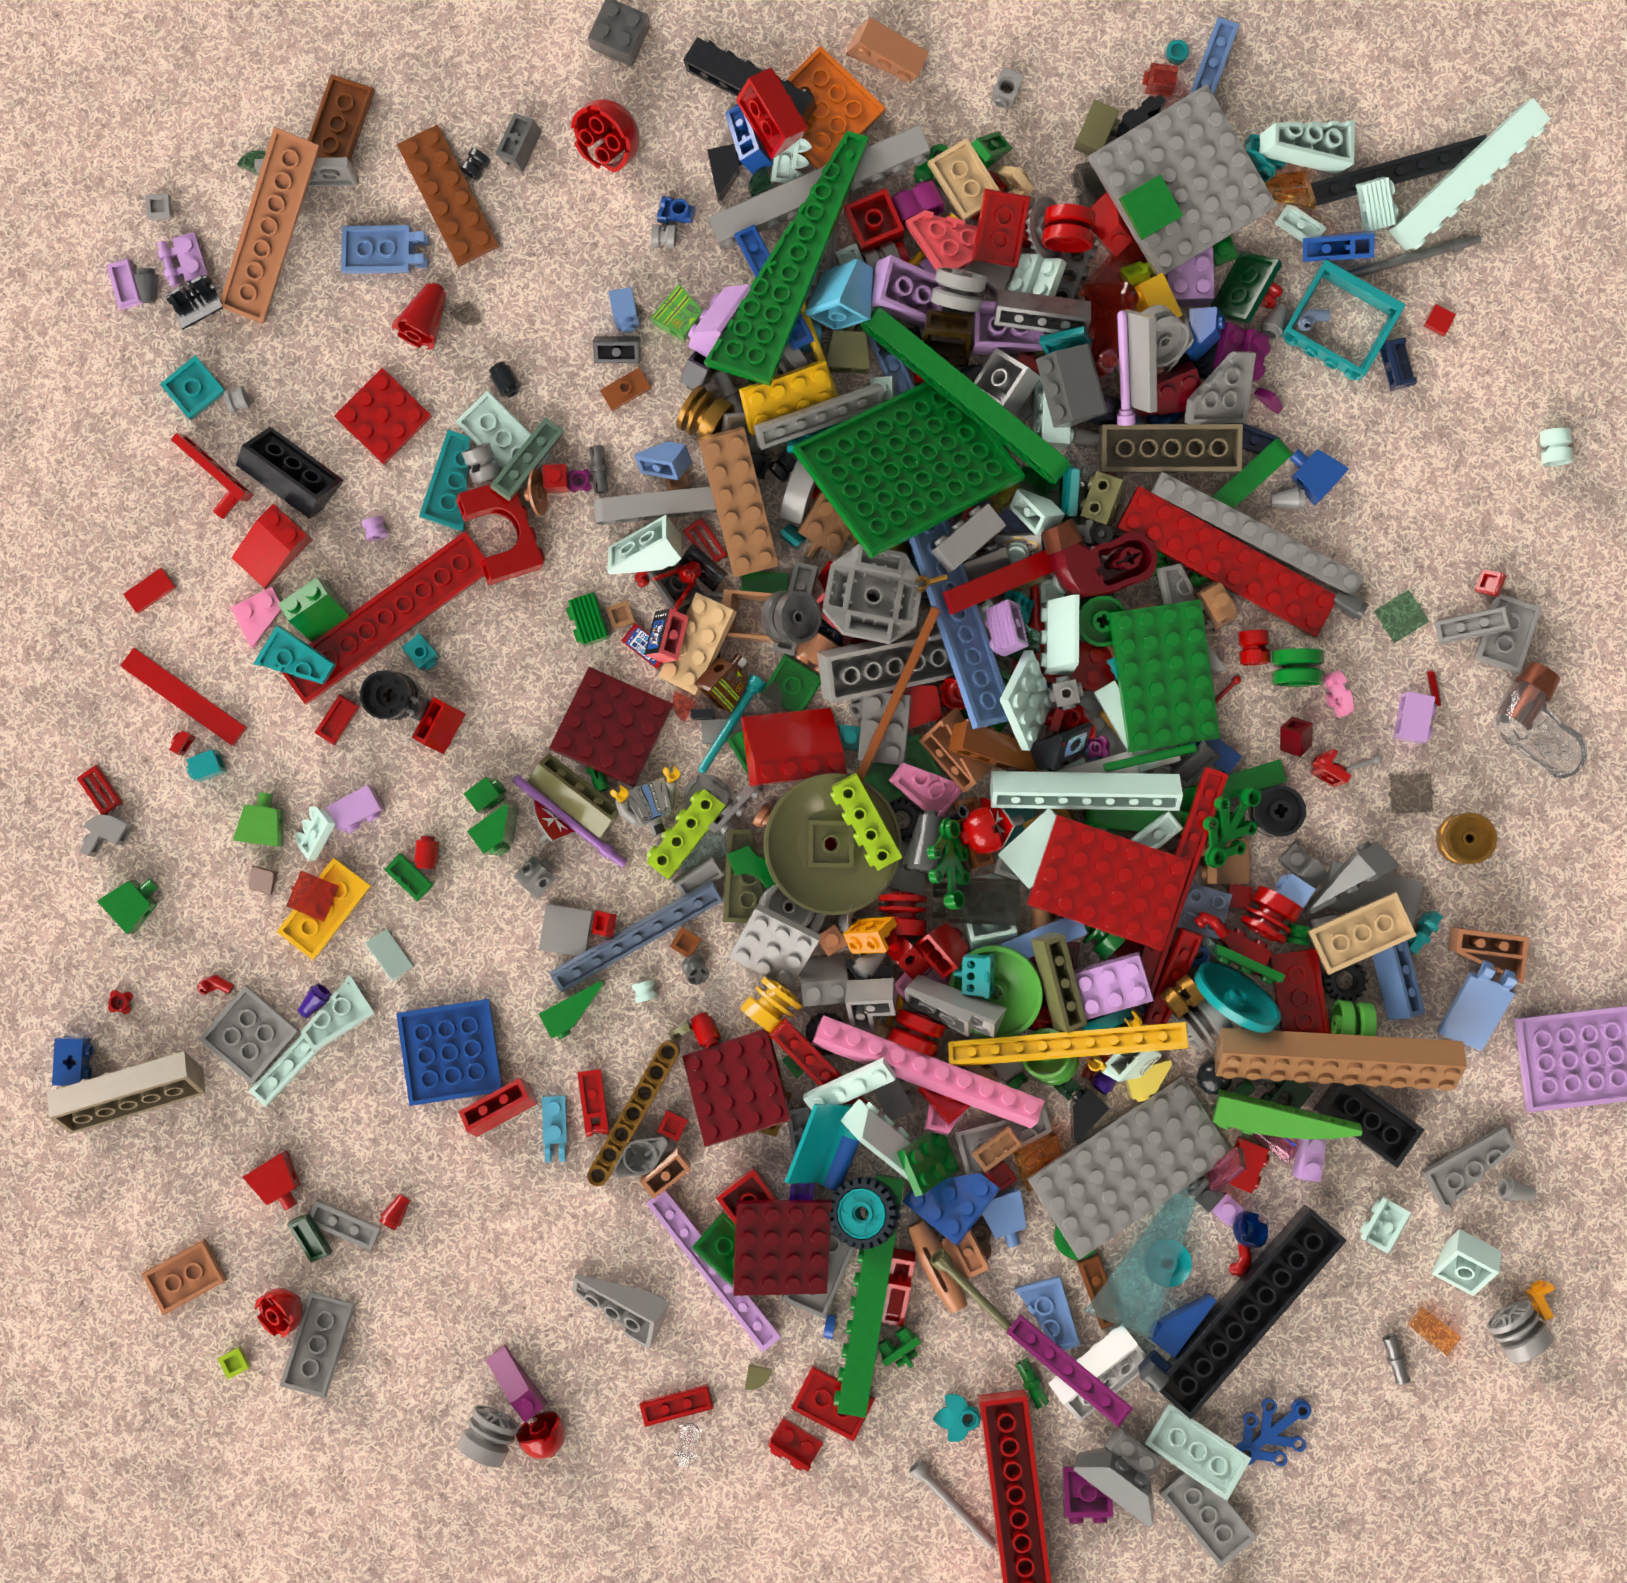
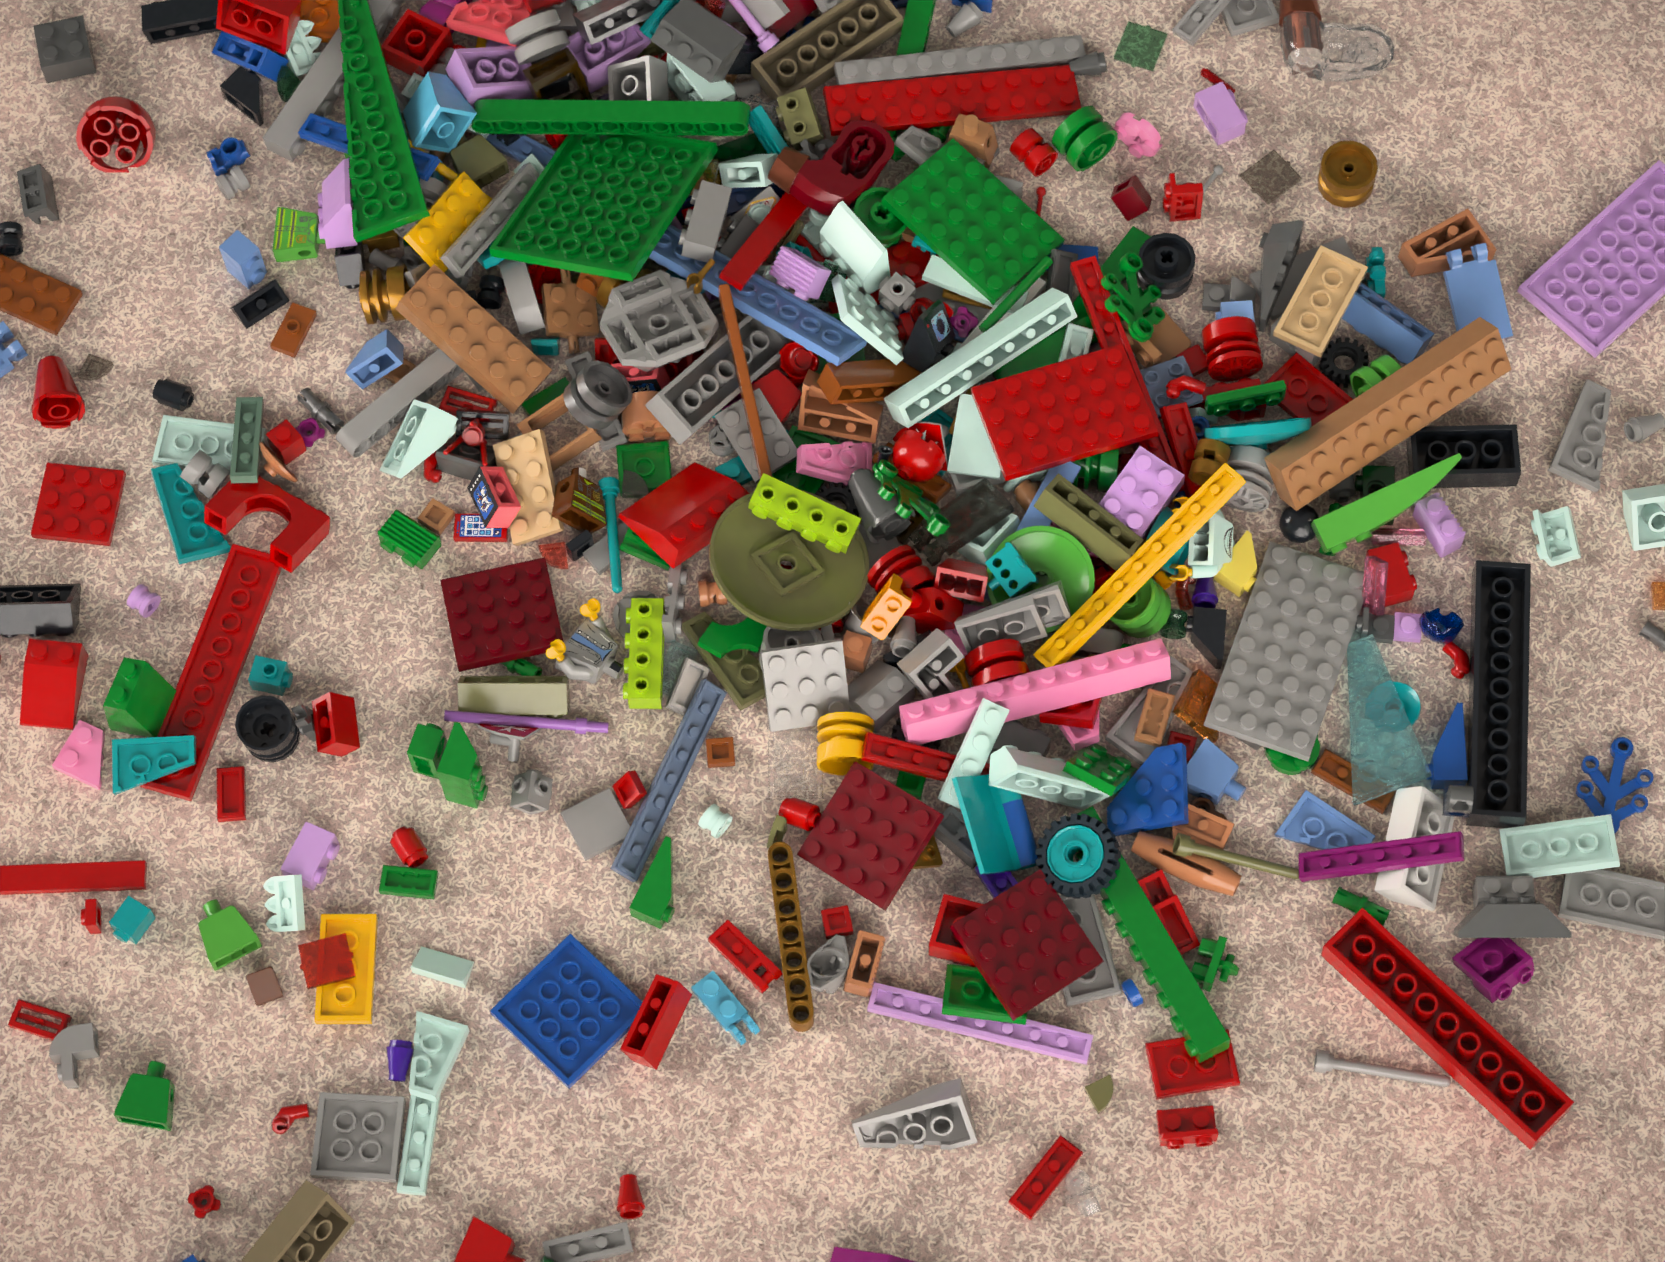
camera: 35 degrees left, 20 degrees down
(695, 969) = (748, 767): dark grey wheel -> none
(953, 1417) = (1315, 991): teal plate -> none
(1298, 934) = (1272, 353): green wheel -> none

